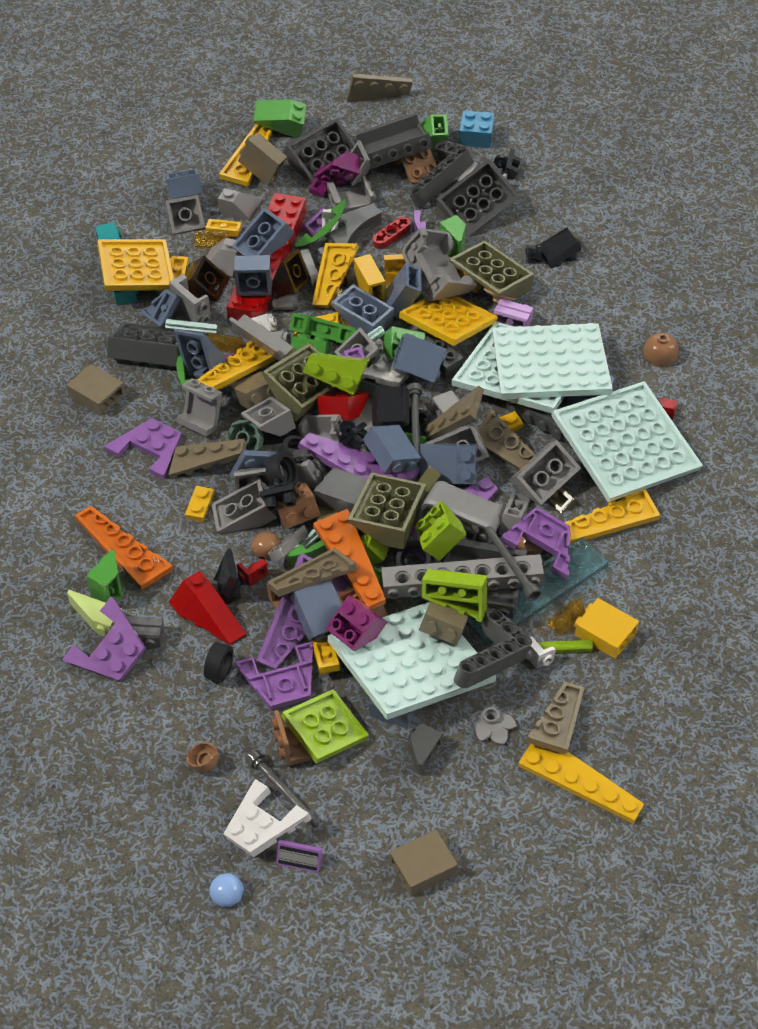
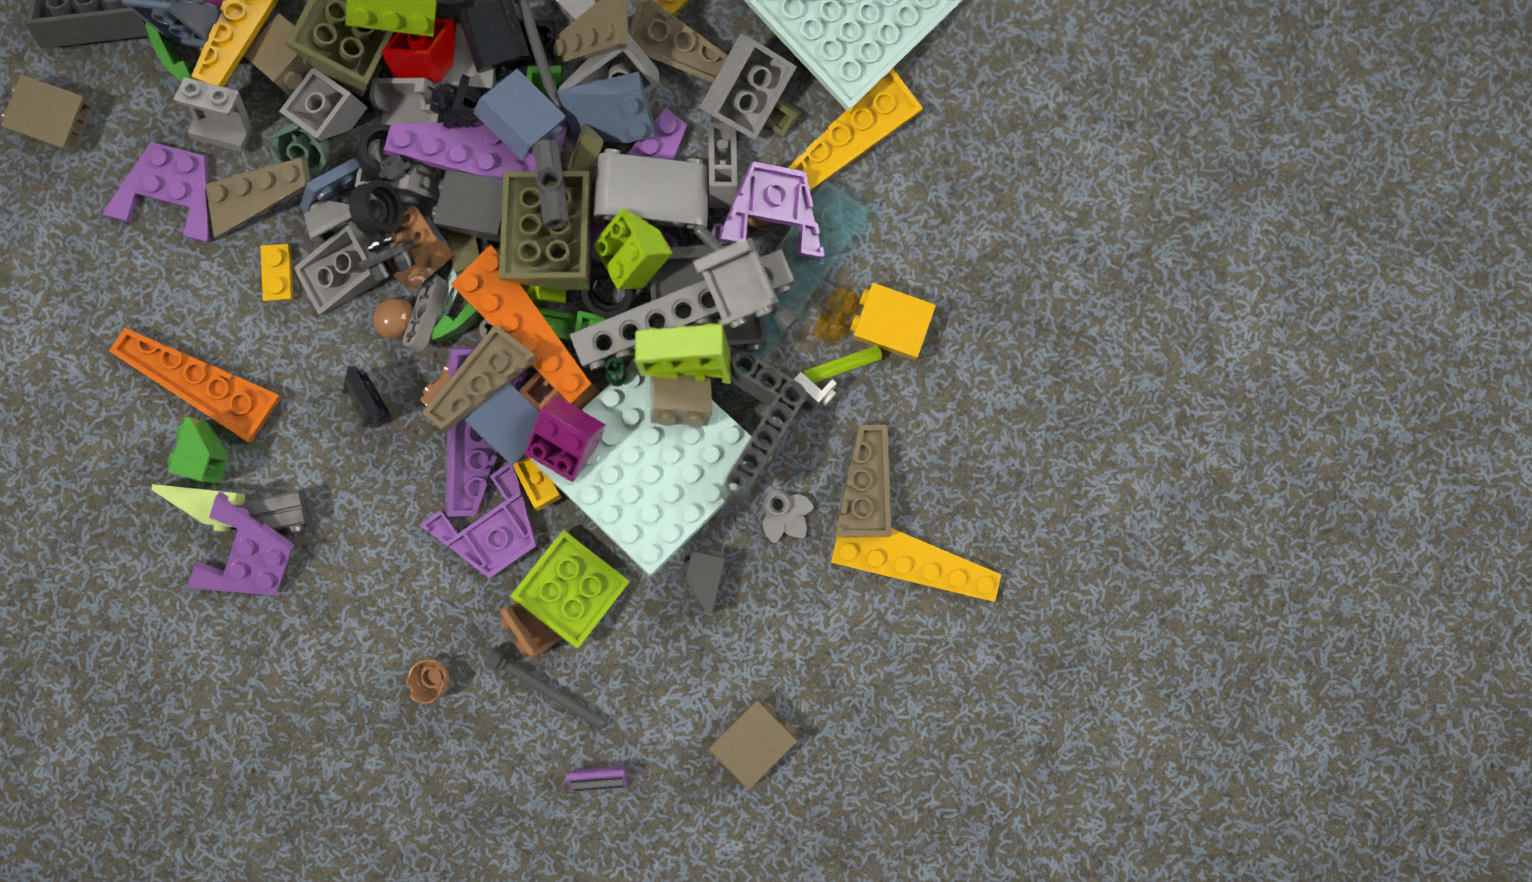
camera: 20 degrees left, 35 degrees up
(202, 605) = (344, 447): red wedge -> none
(218, 662) = (398, 537): black tyre -> none
(226, 890) = (524, 849): light blue hair -> none
(253, 573) = (395, 372): red bracket -> none
(256, 829) = (528, 761): white wing -> none
(399, 479) = (552, 198): none -> dark grey piece
(404, 604) = (616, 372): none -> dark green pin
(504, 557) = (737, 282): none -> light grey panel

